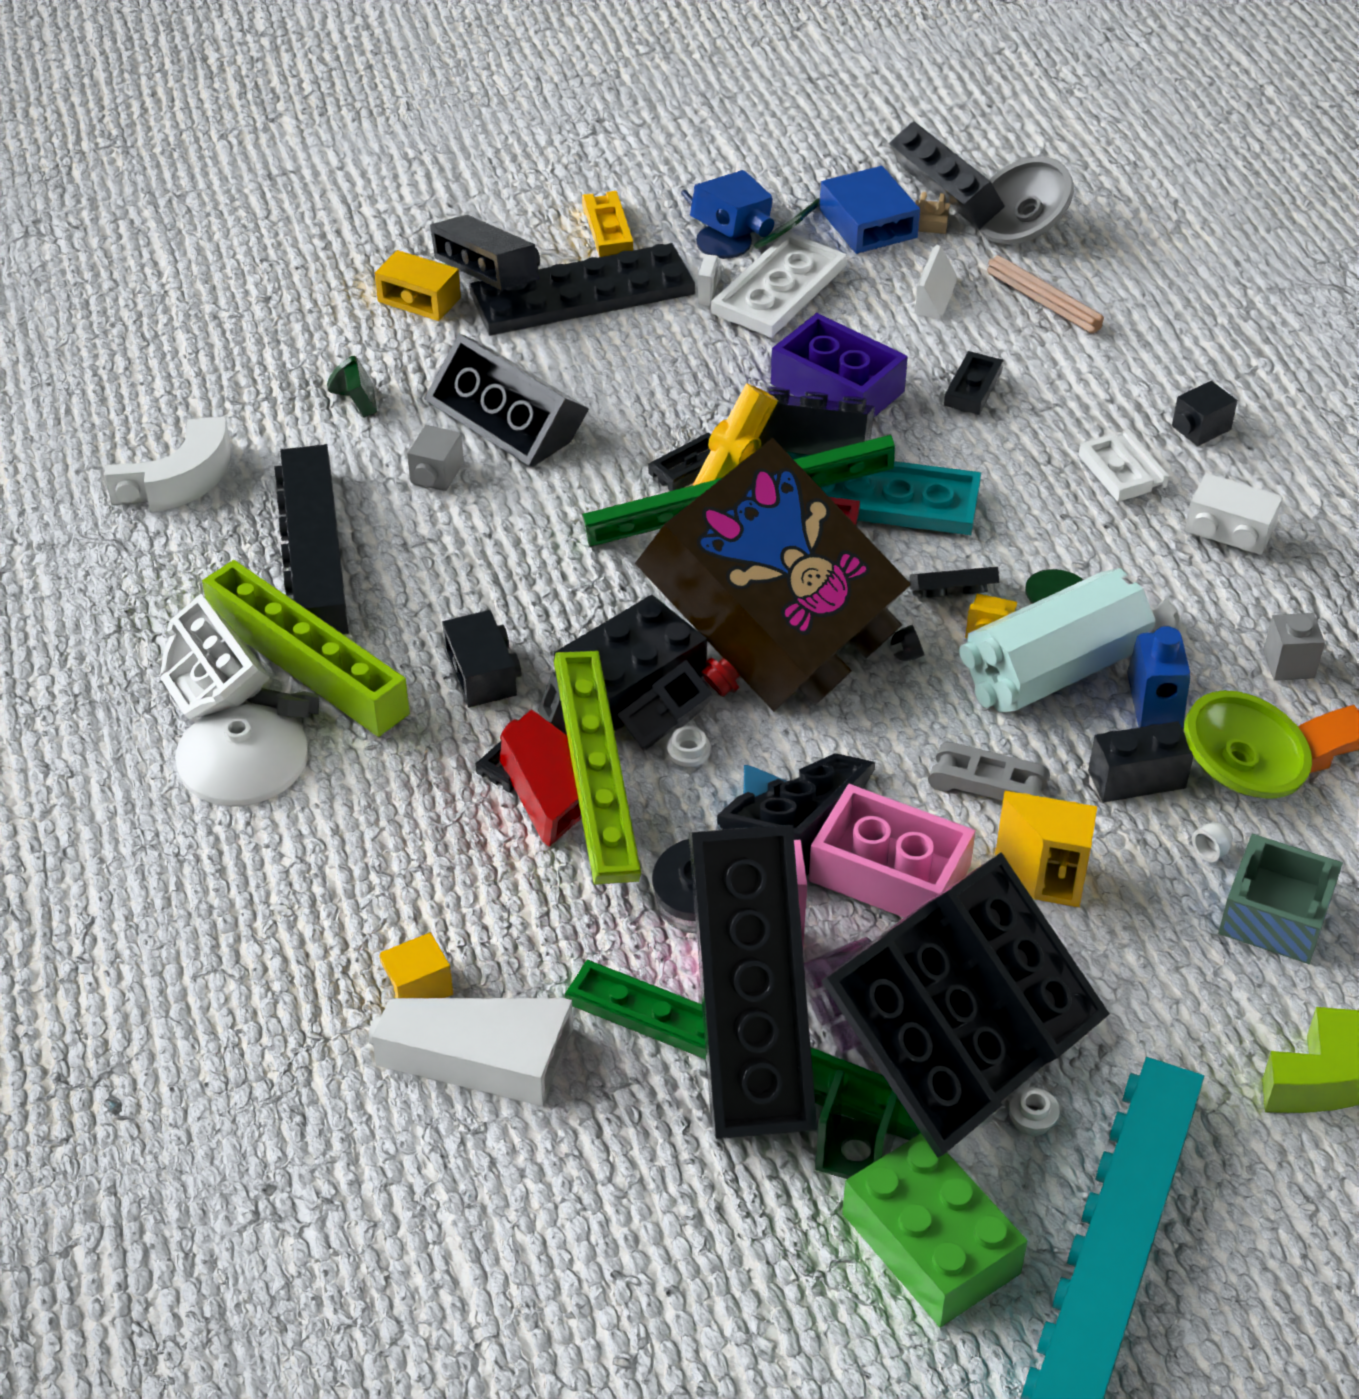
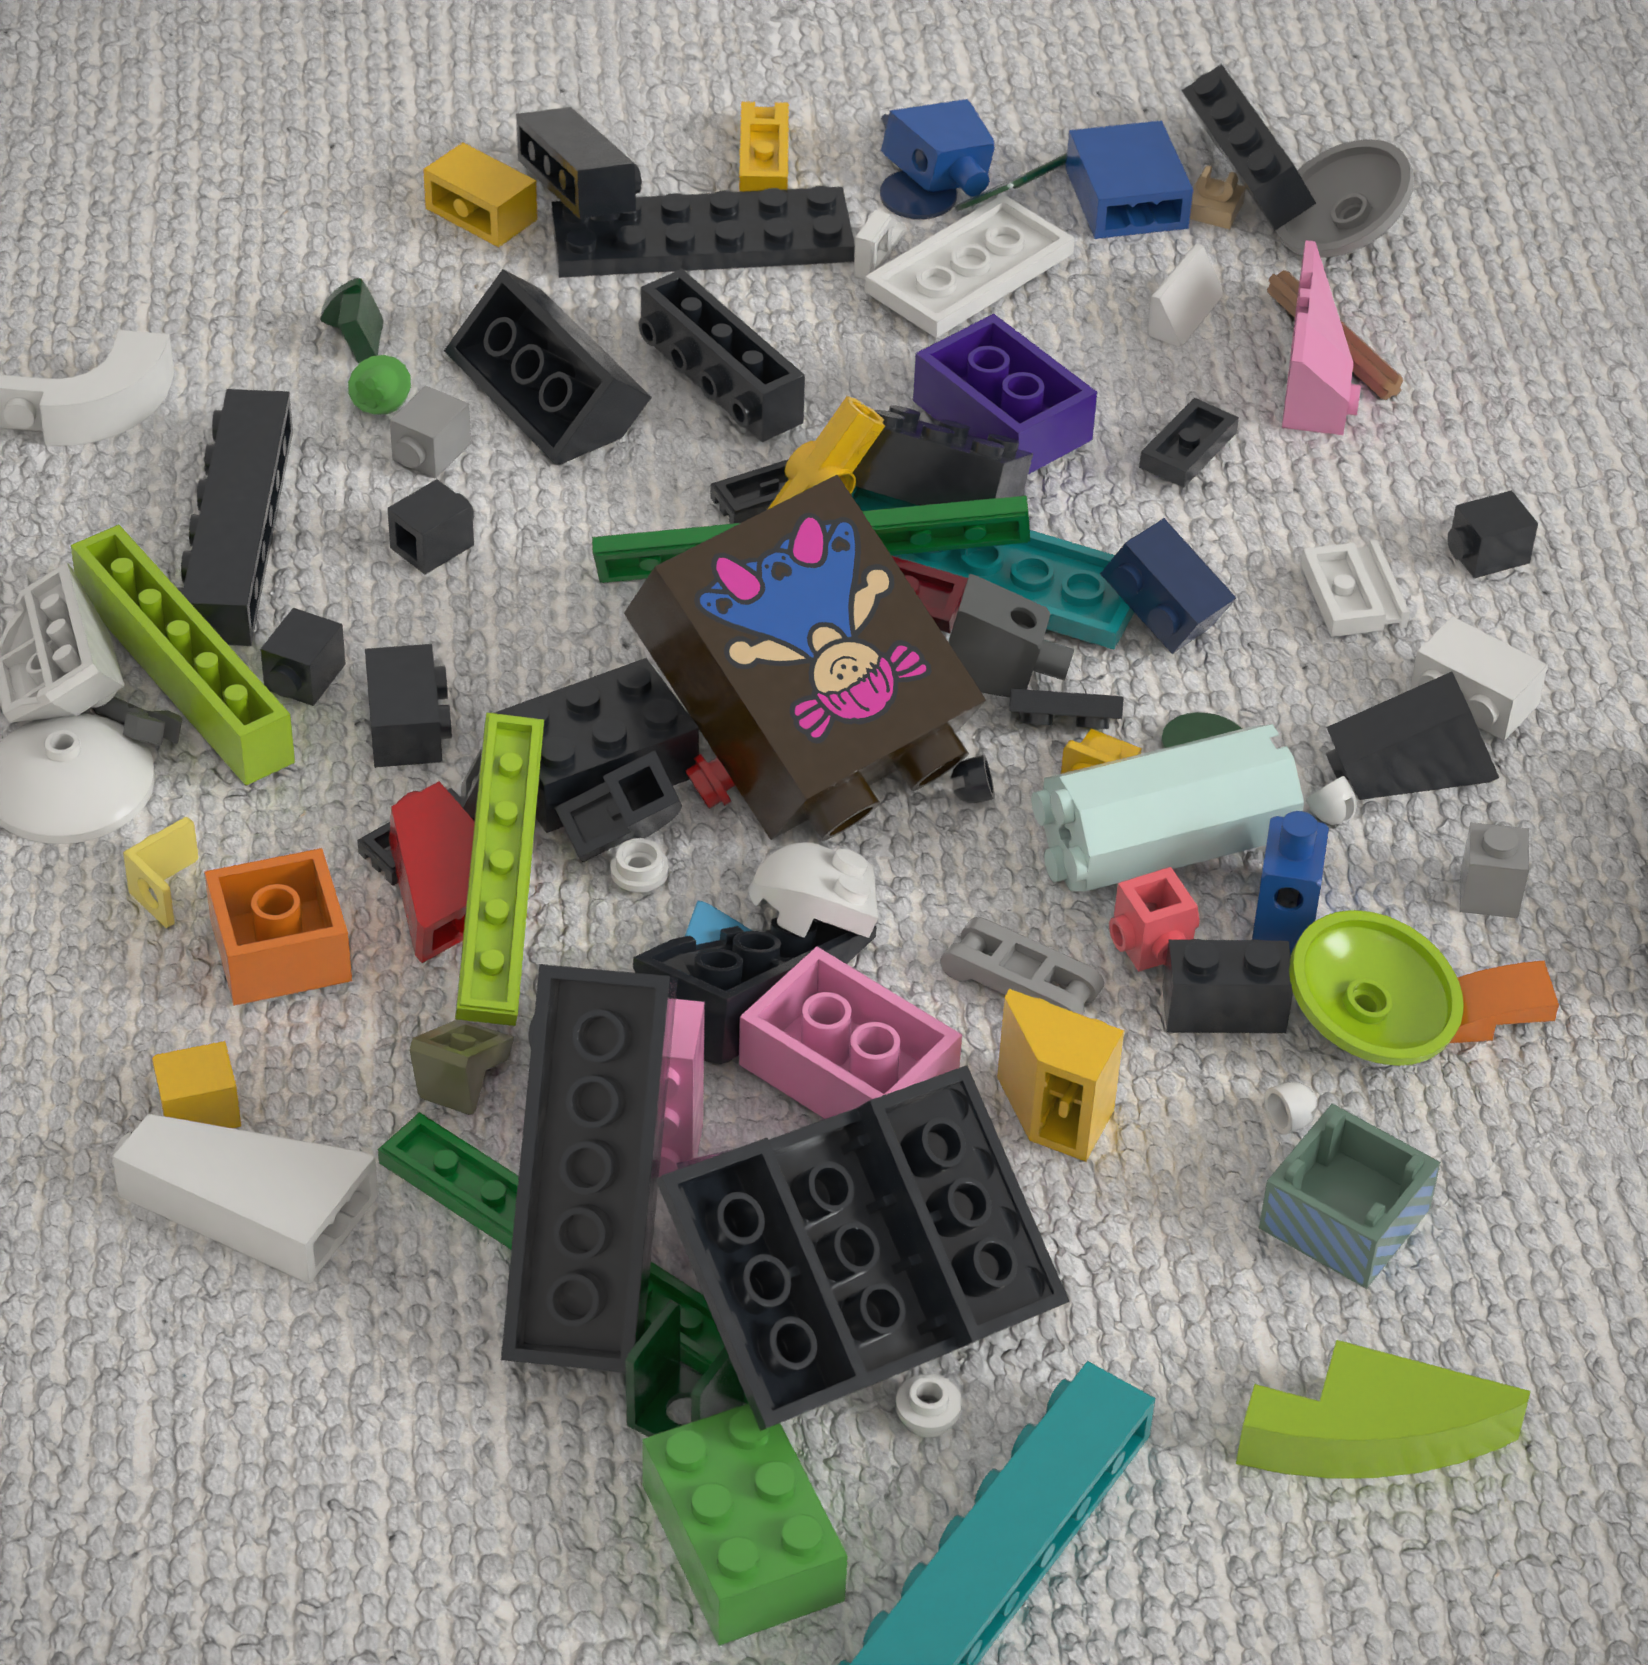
camera: 10 degrees right, 0 degrees up
(329, 805) = (156, 860): none -> light yellow bracket
(387, 430) = (379, 385): none -> bright green hat
(394, 633) = (303, 656): none -> black brick
(441, 838) = (278, 926): none -> orange brick
(457, 525) = (431, 526): none -> black brick
(605, 917) = (453, 1062): none -> olive slope
(630, 371) = (722, 355): none -> black brick
(827, 739) = (820, 884): none -> white slope
(903, 535) = (1003, 639): none -> dark grey torso
(1000, 483) = (1168, 585): none -> dark blue brick
(1045, 311) = (1320, 360): none -> bright pink wedge
(1073, 720) = (1150, 914): none -> coral brick
(1207, 565) = (1412, 743): none -> black slope

